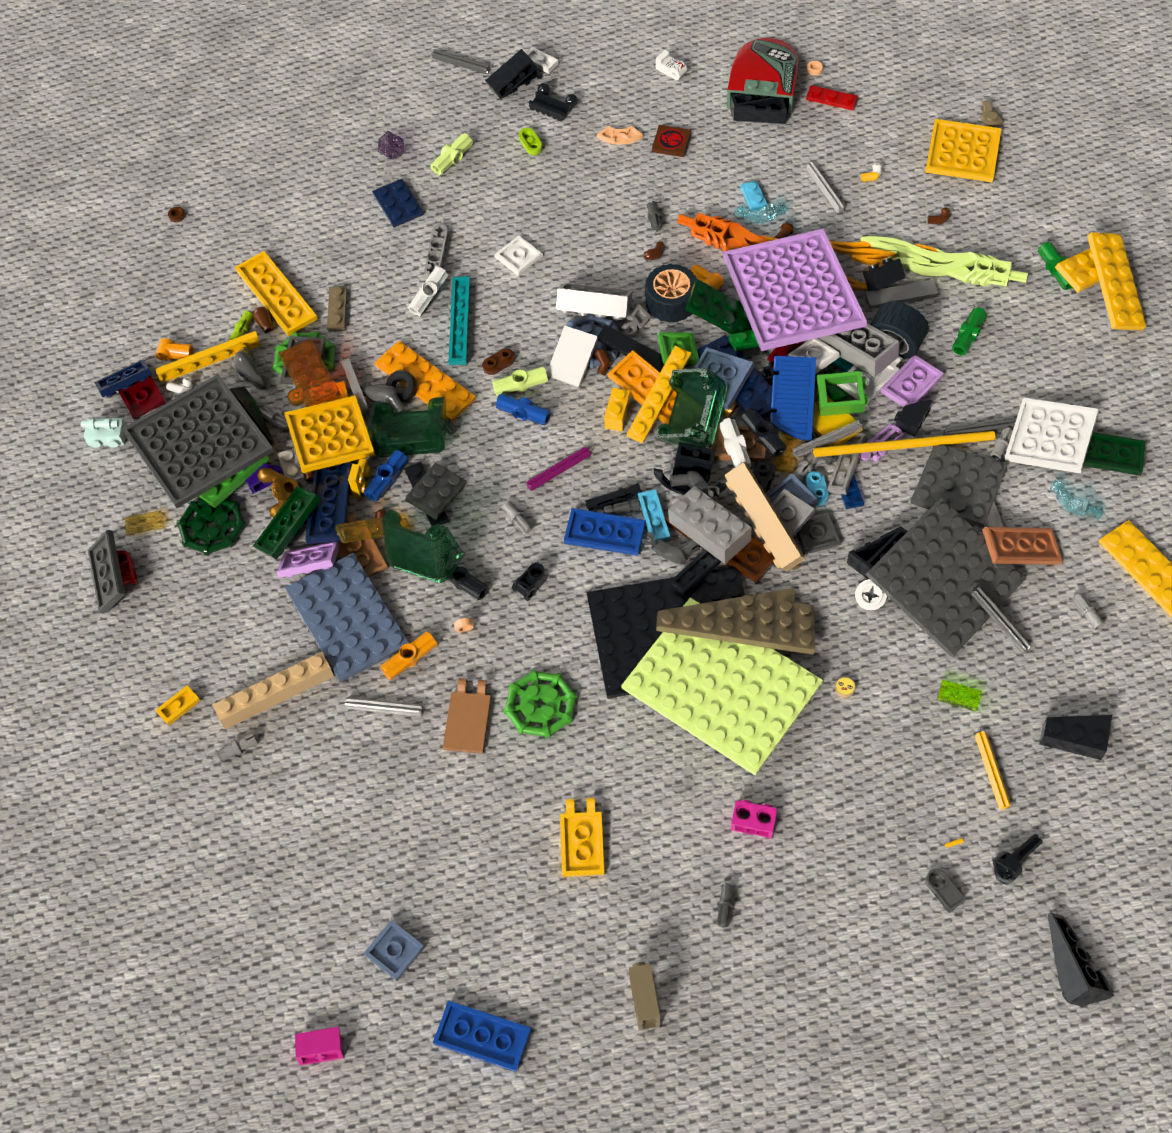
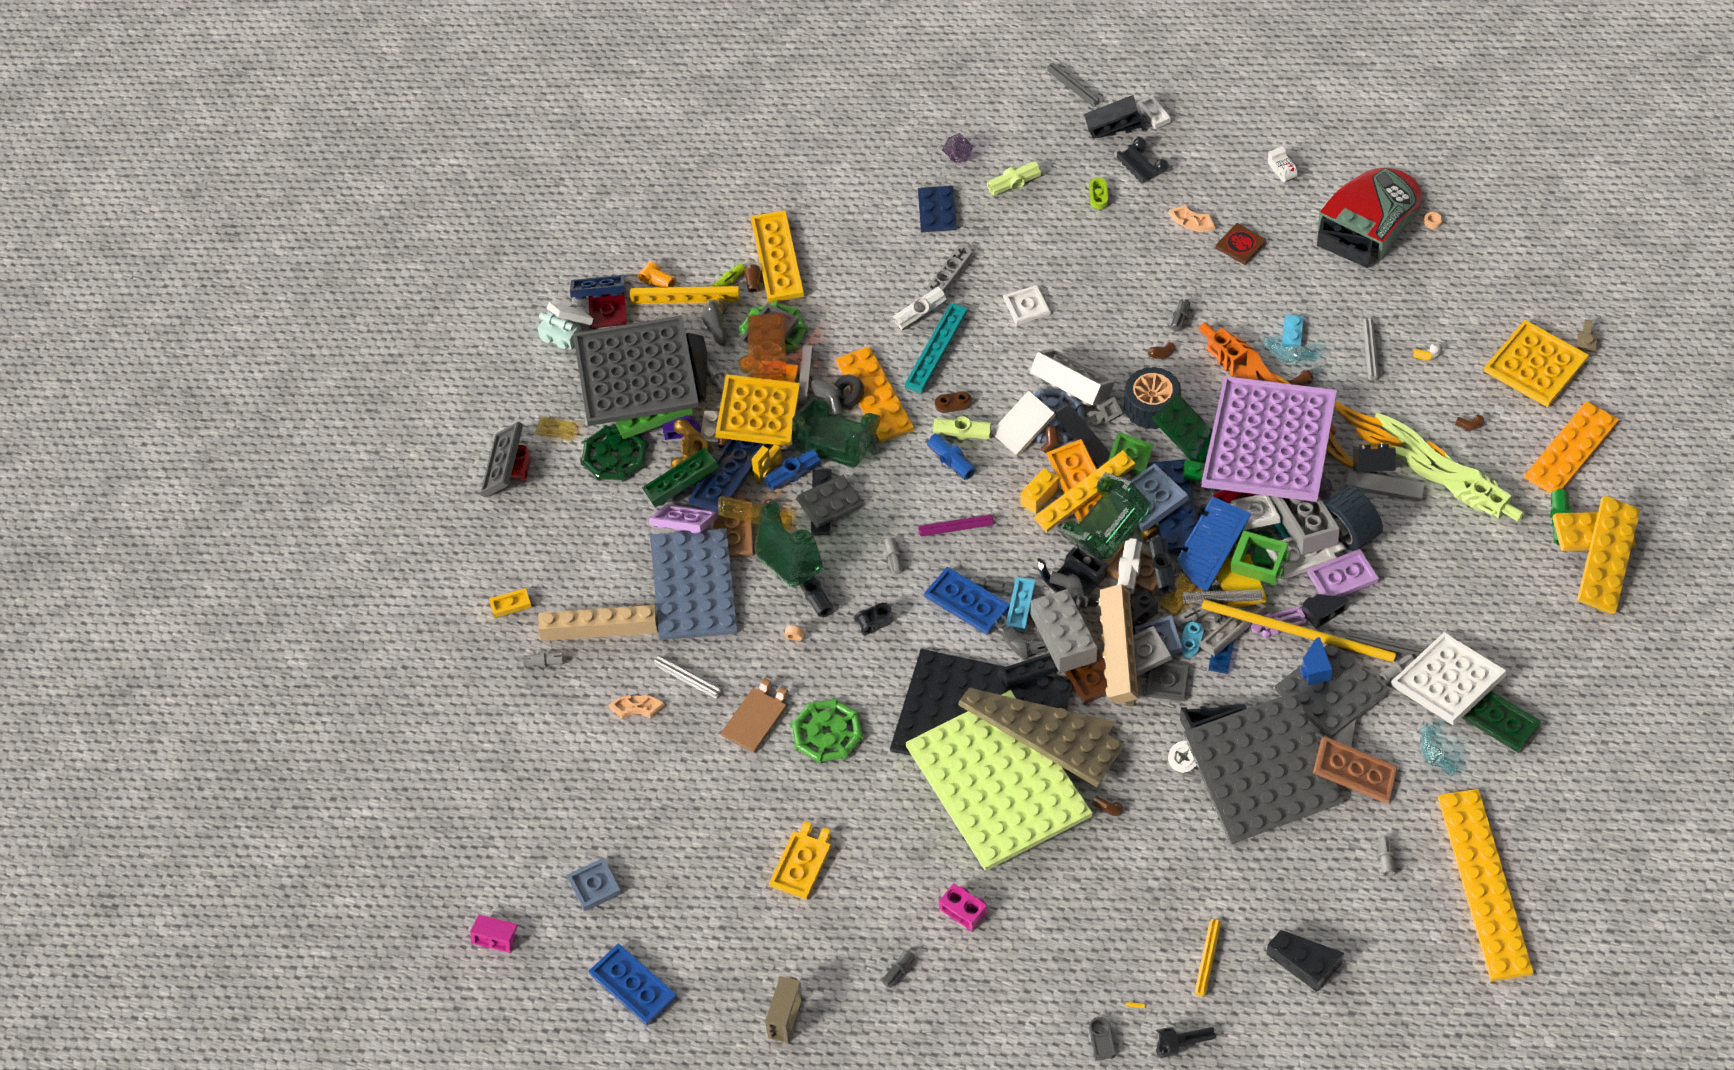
camera: 25 degrees right, 5 degrees down
(109, 412) = (570, 313): none -> white tile
(176, 214) = (721, 143): reddish brown tile -> none
(180, 388) = (653, 314): white arm -> none
(337, 308) = (827, 292): dark tan plate -> none
(348, 753) = (632, 705): none -> light nougat tile
(399, 662) = (721, 643): light orange piece -> none
(613, 497) = (992, 571): black pin -> none
(714, 280) = (1197, 399): light orange piece -> none
(832, 97) = (1432, 258): red plate -> none
(835, 668) = (1112, 809): none -> reddish brown arm
(845, 687) = (1113, 829): tile -> none
(940, 466) = (1315, 664): none -> blue slope
(959, 695) = (1215, 880): clear neon green plate -> none
(969, 331) = (1430, 547): green piece -> none
(1001, 619) = (1293, 828): axle -> none
(1030, 208) = (1571, 448): none -> light orange plate

